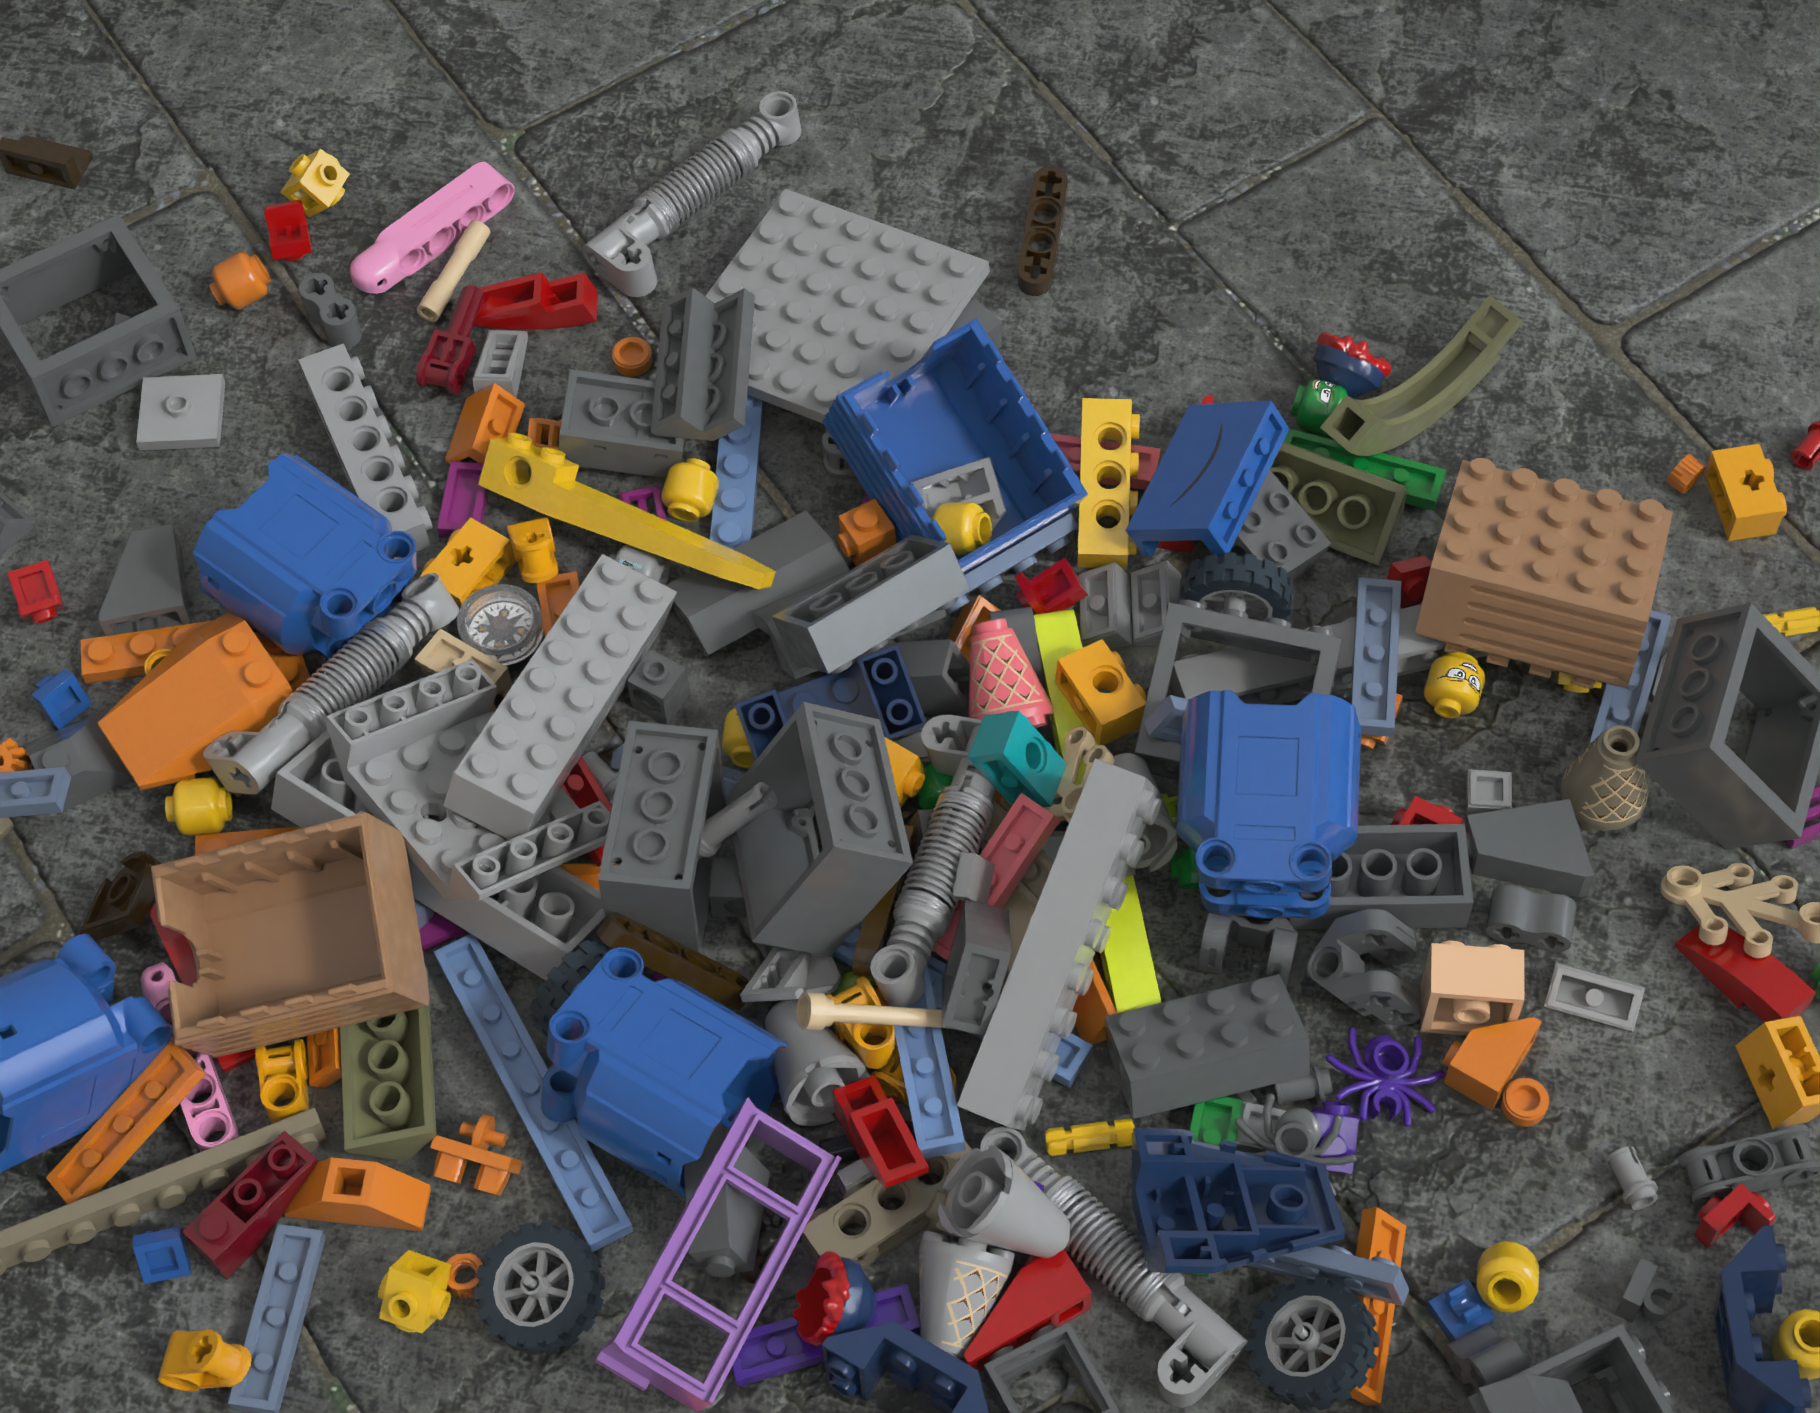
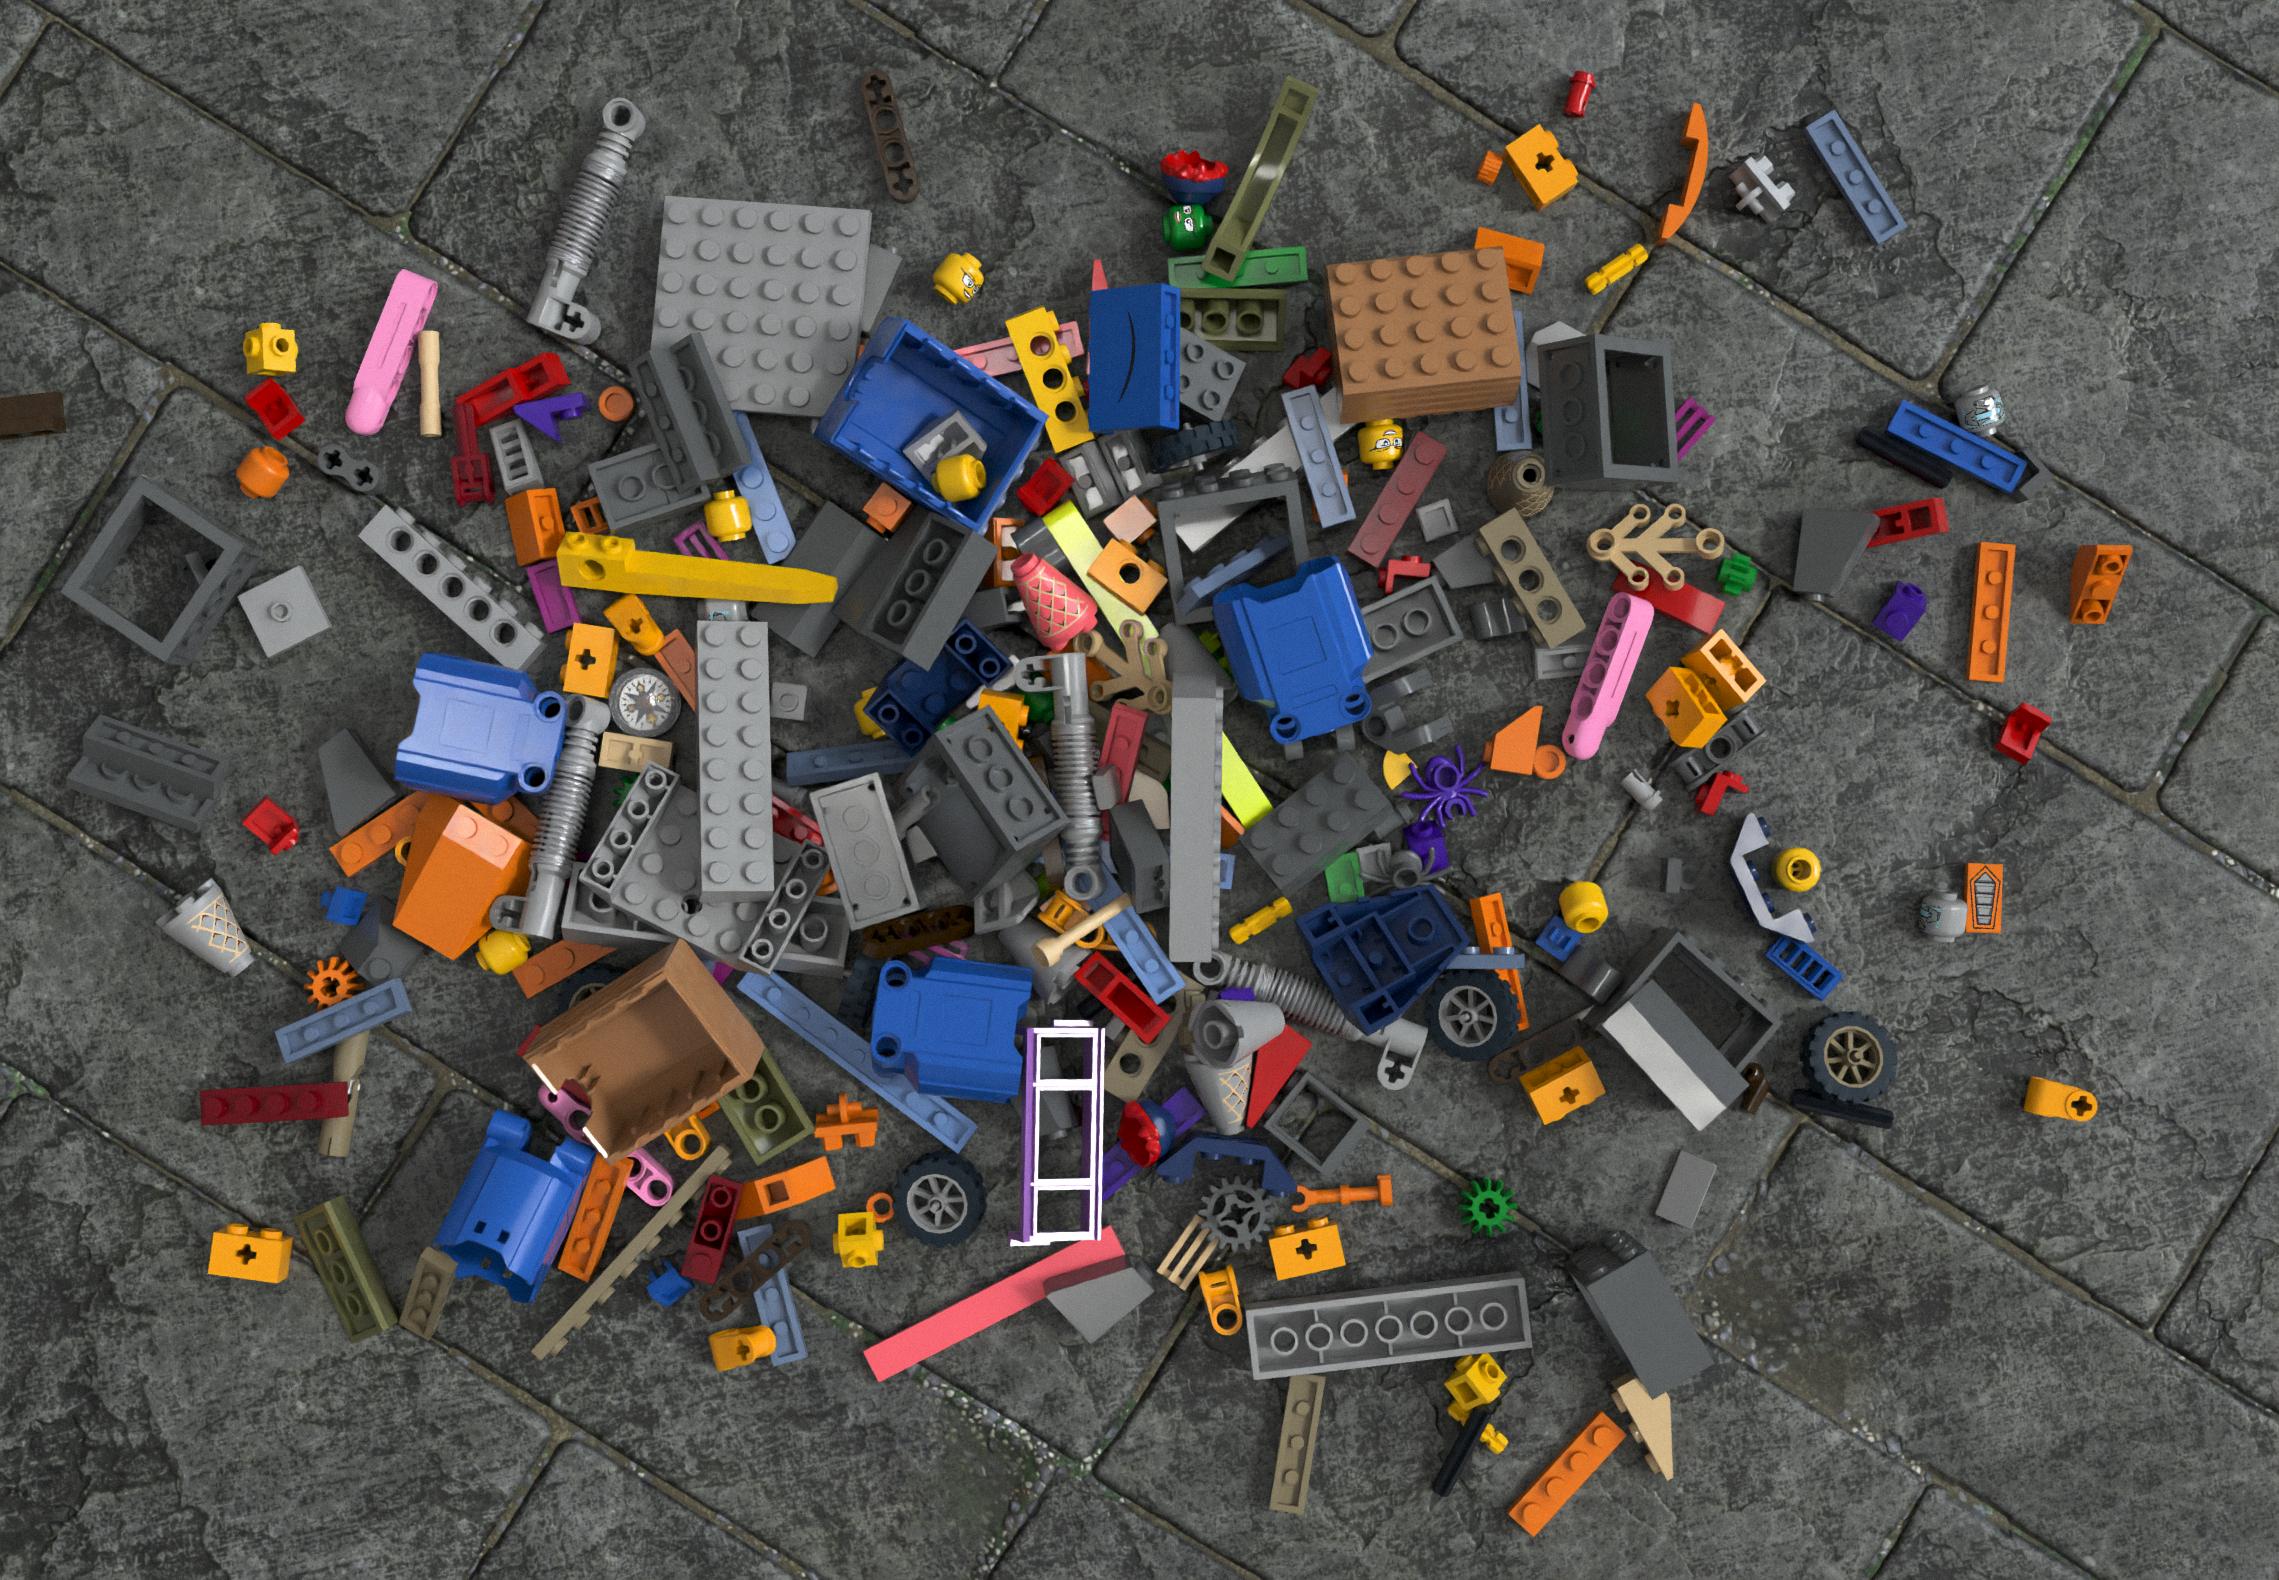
camera: 25 degrees left, 30 degrees up
(124, 901) = (490, 1043): dark brown tile -> none
(272, 1264) = (753, 1267): none -> dark brown beam
(558, 331) = (544, 412): none -> dark purple slope
(1017, 758) = (1097, 677): teal brick -> none
(1051, 366) = (958, 278): none -> yellow head
(1137, 651) = (1132, 521): none -> brick
(1332, 1032) = (1395, 768): none -> yellow tile
(1448, 747) = (1396, 501): none -> dark red brick
(1470, 987) = (1485, 703): light nougat brick -> none
(1574, 804) = (1565, 618): none -> dark tan brick
(1635, 1020) = (1607, 673): none -> bright pink piece
(1684, 575) = (1521, 256): none -> orange panel
(1723, 1089) = (1685, 707): none -> light orange brick

